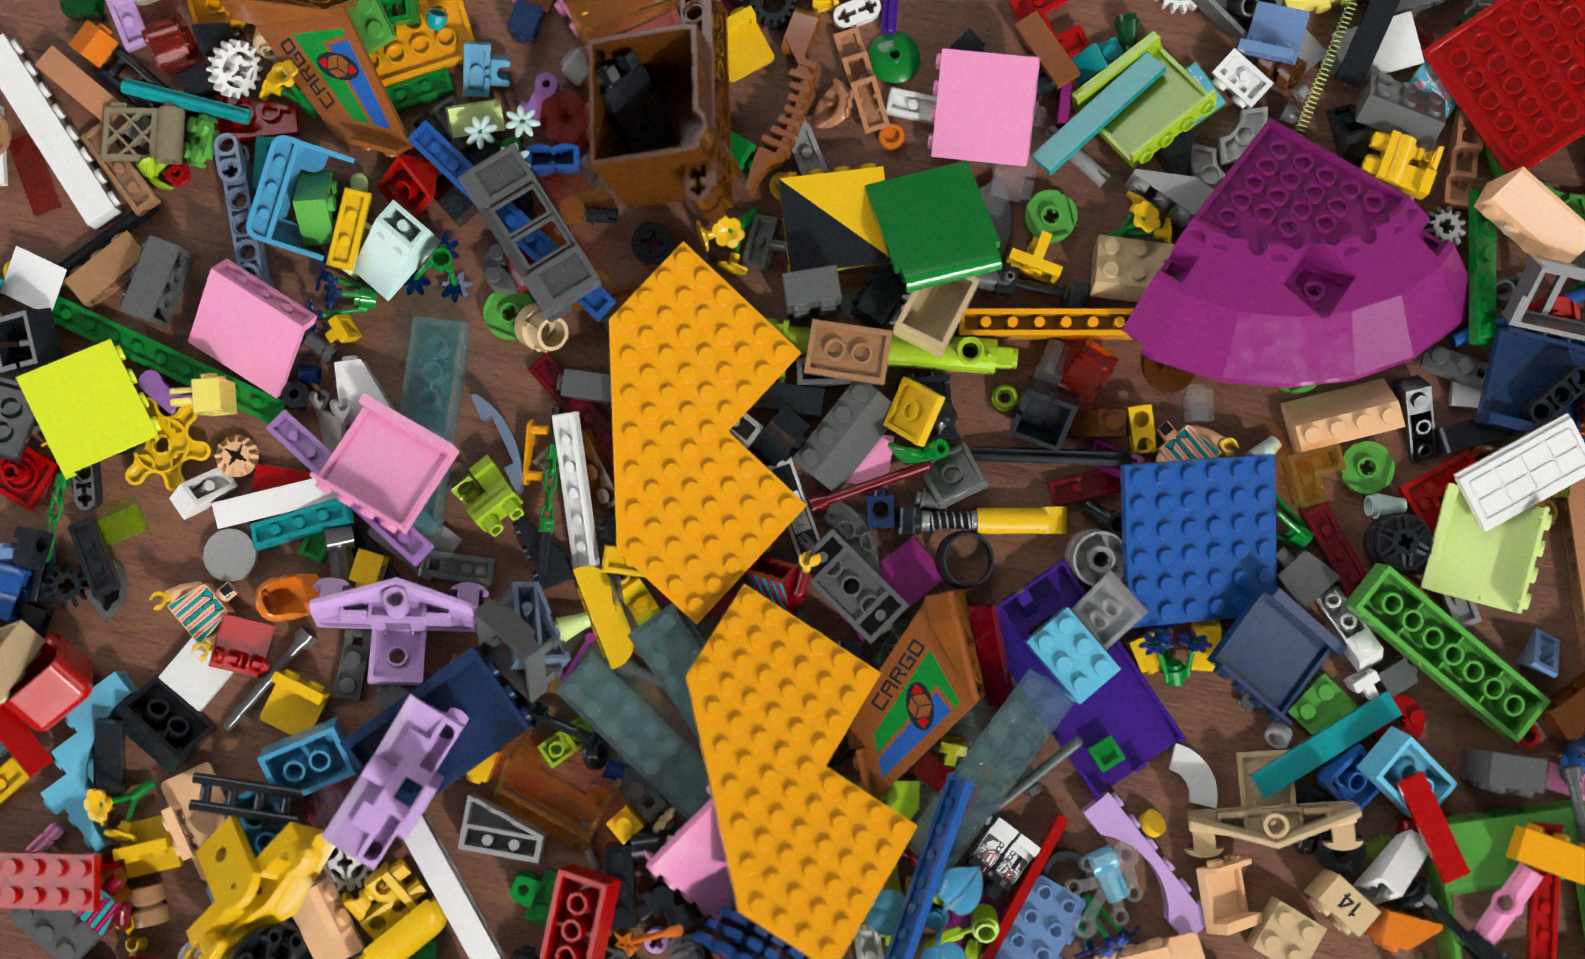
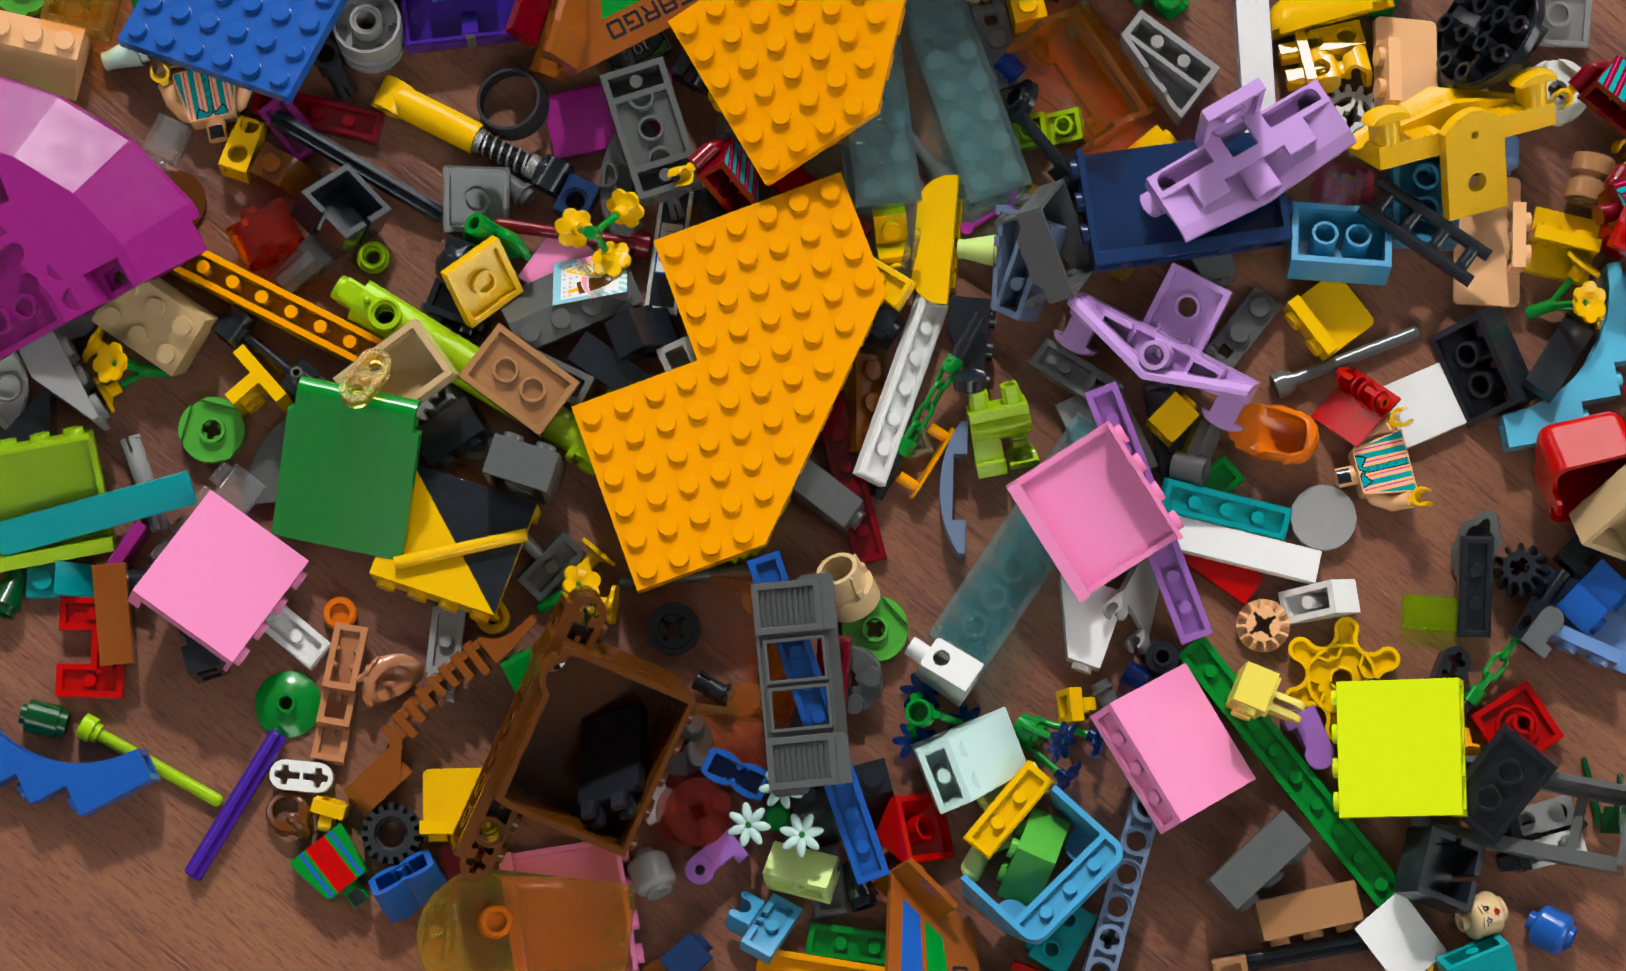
camera: 150 degrees left, 5 degrees down
(433, 305) = (952, 679): none -> white torso
(526, 518) = (969, 381): none -> black tile
(826, 213) = (460, 549): none -> yellow bar
(833, 478) = (575, 229): none -> yellow plant
(839, 457) = (577, 281): none -> sticker
(954, 284) = (363, 380): none -> clear yellow plate

